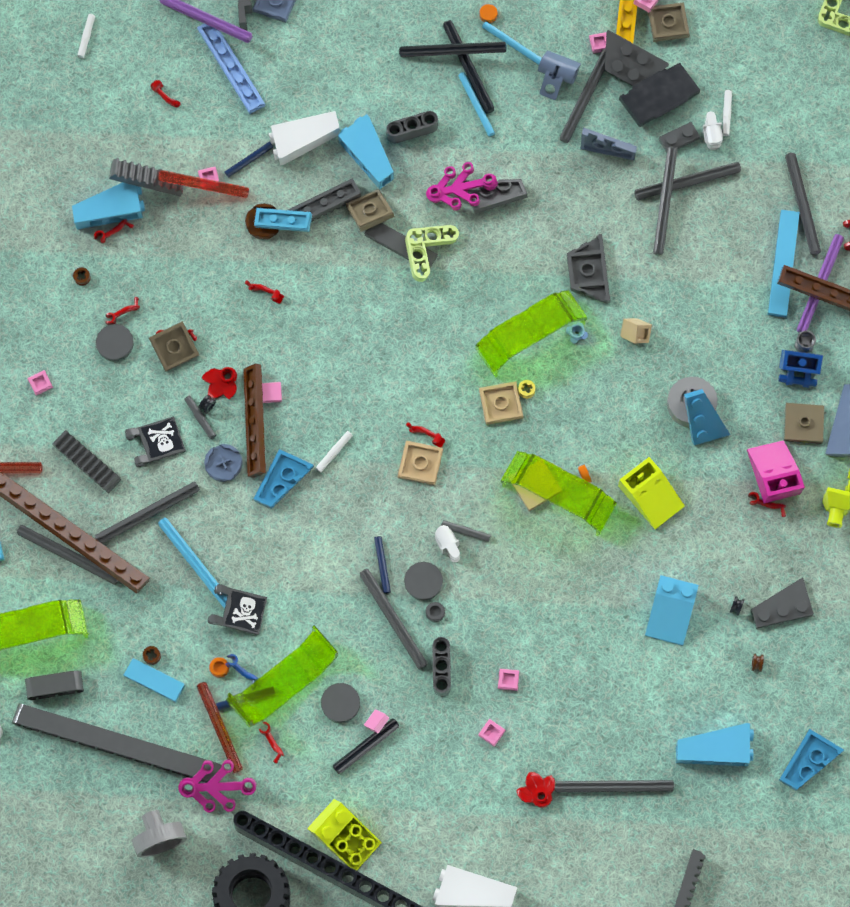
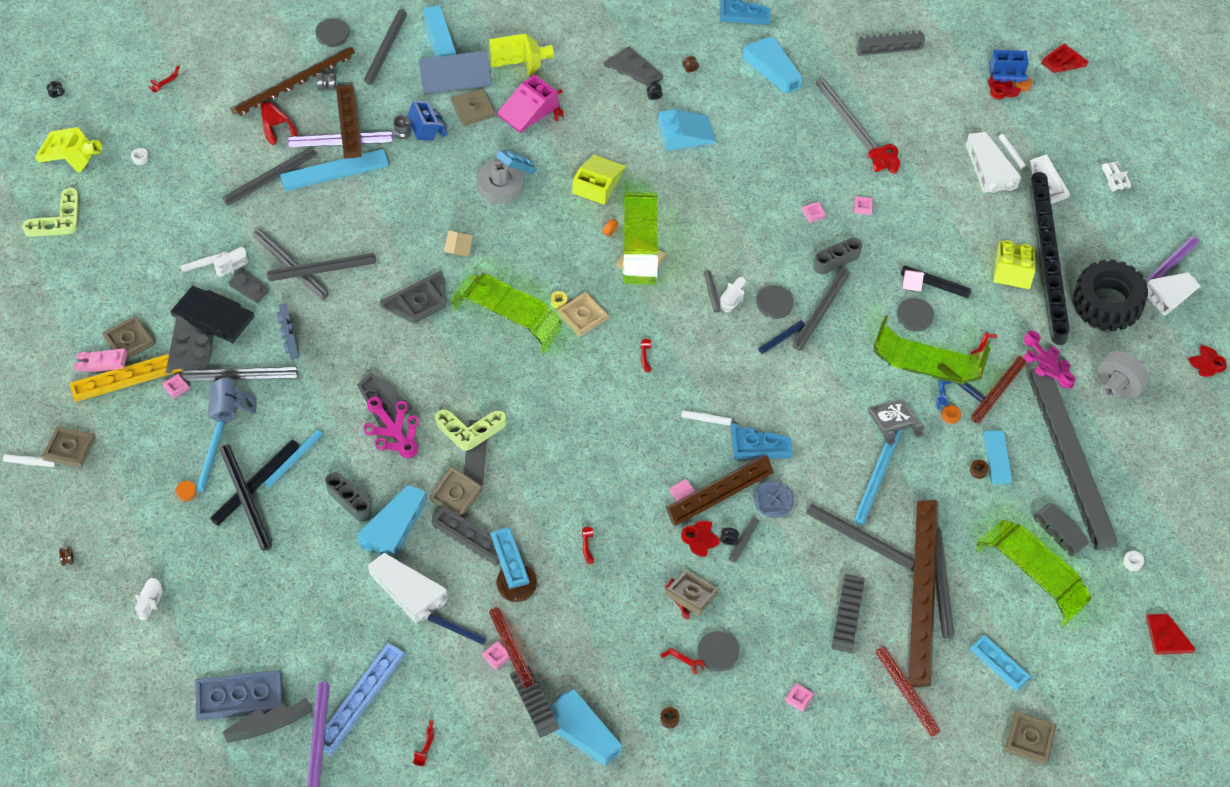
camera: 125 degrees left, 15 degrees down
(114, 230) = (605, 716): red piece -> none
(159, 440) = (787, 563): flag -> none
(420, 463) = (674, 349): tan tile -> none
(435, 612) = (794, 283): dark grey tile -> none

